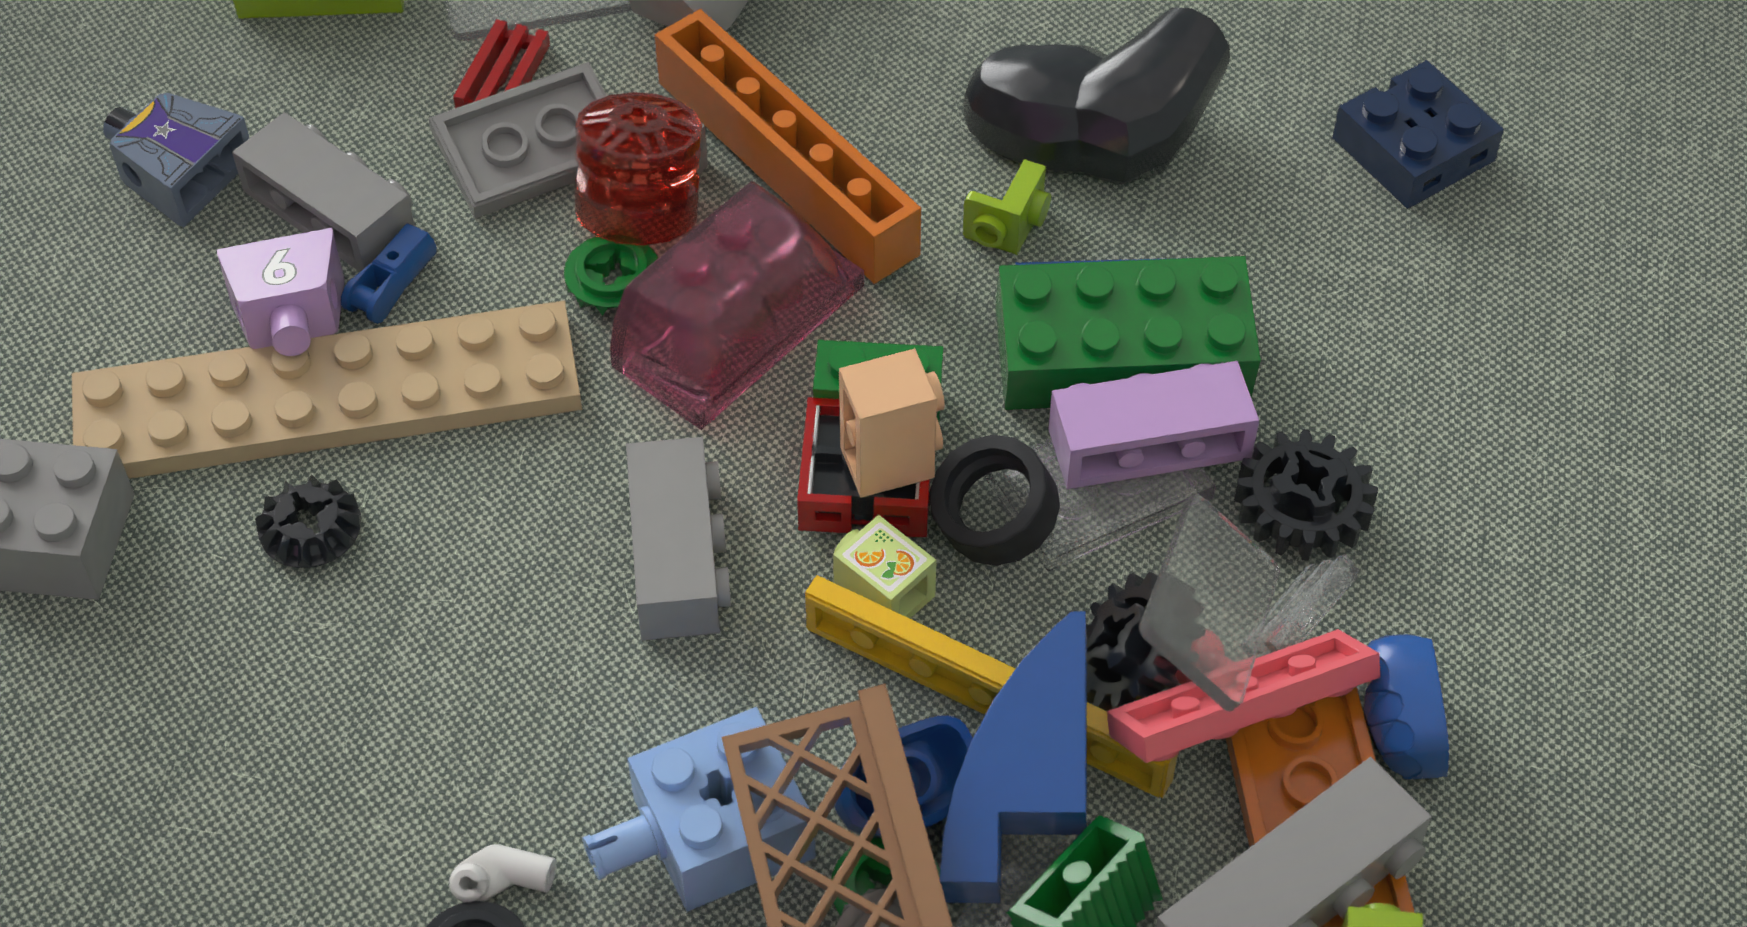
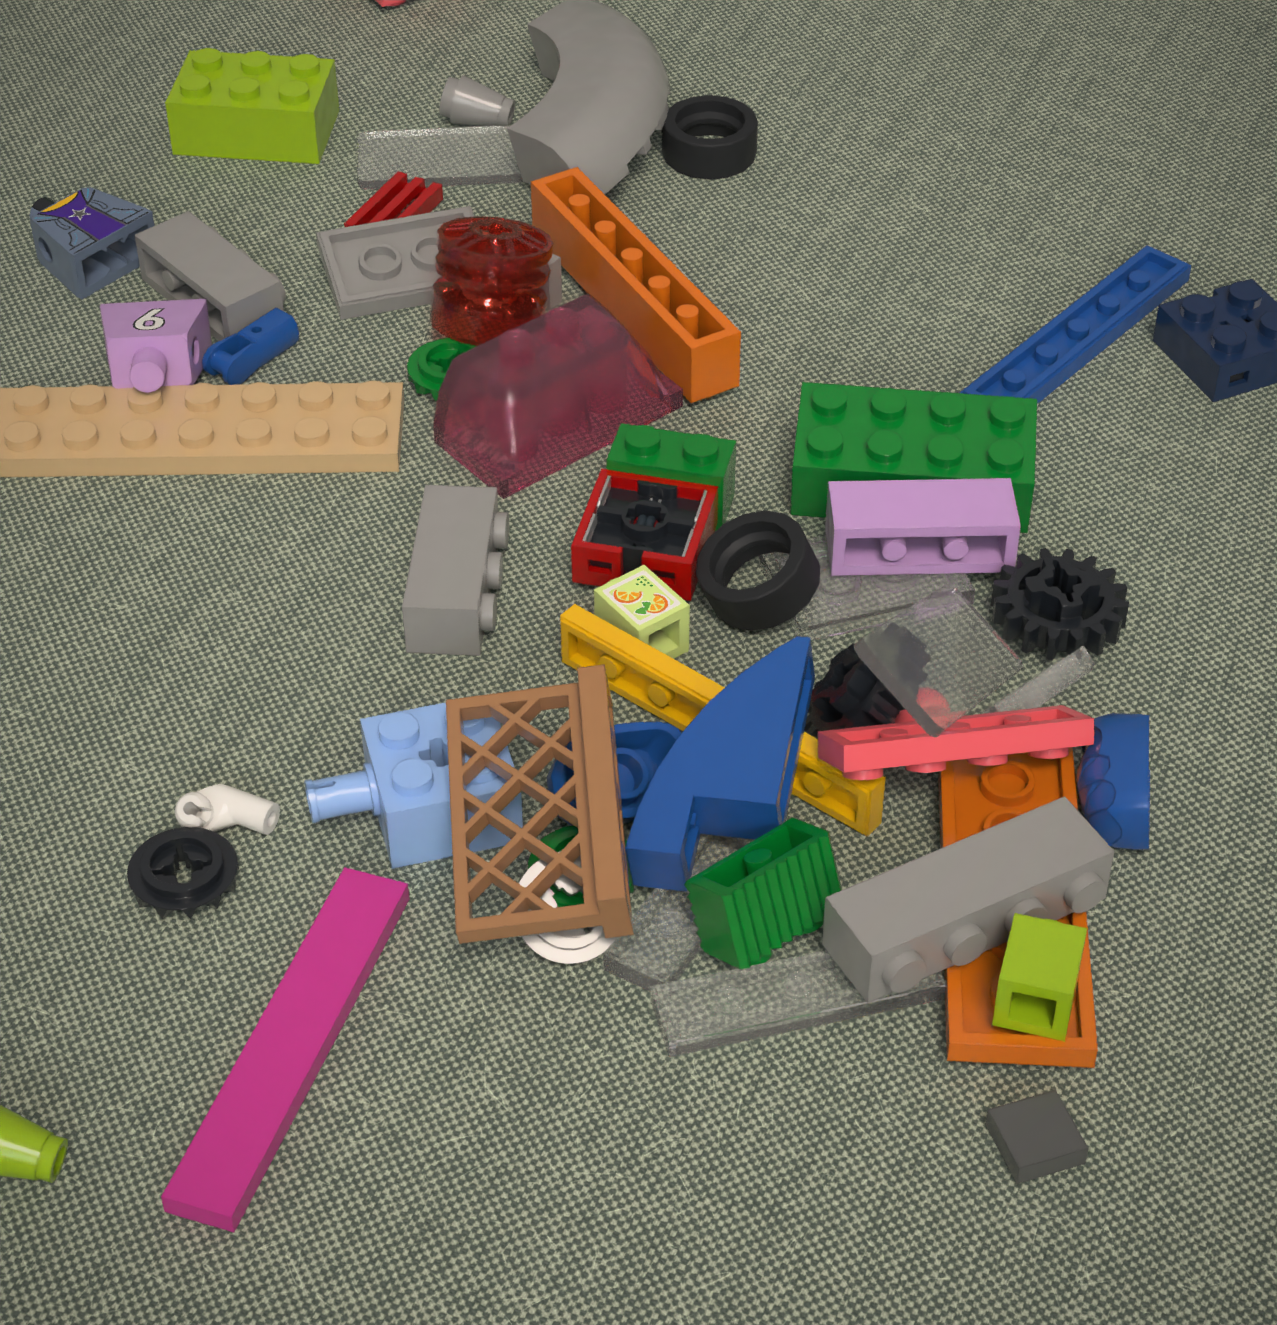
camera: 10 degrees right, 10 degrees down
(295, 544) = (108, 535): black gear -> none
(889, 422) = (665, 477): light nougat brick -> none
(1008, 221) = (831, 359): lime bracket -> none
(1097, 111) = (932, 289): black piece -> none
(1254, 145) = (1085, 327): none -> blue tile

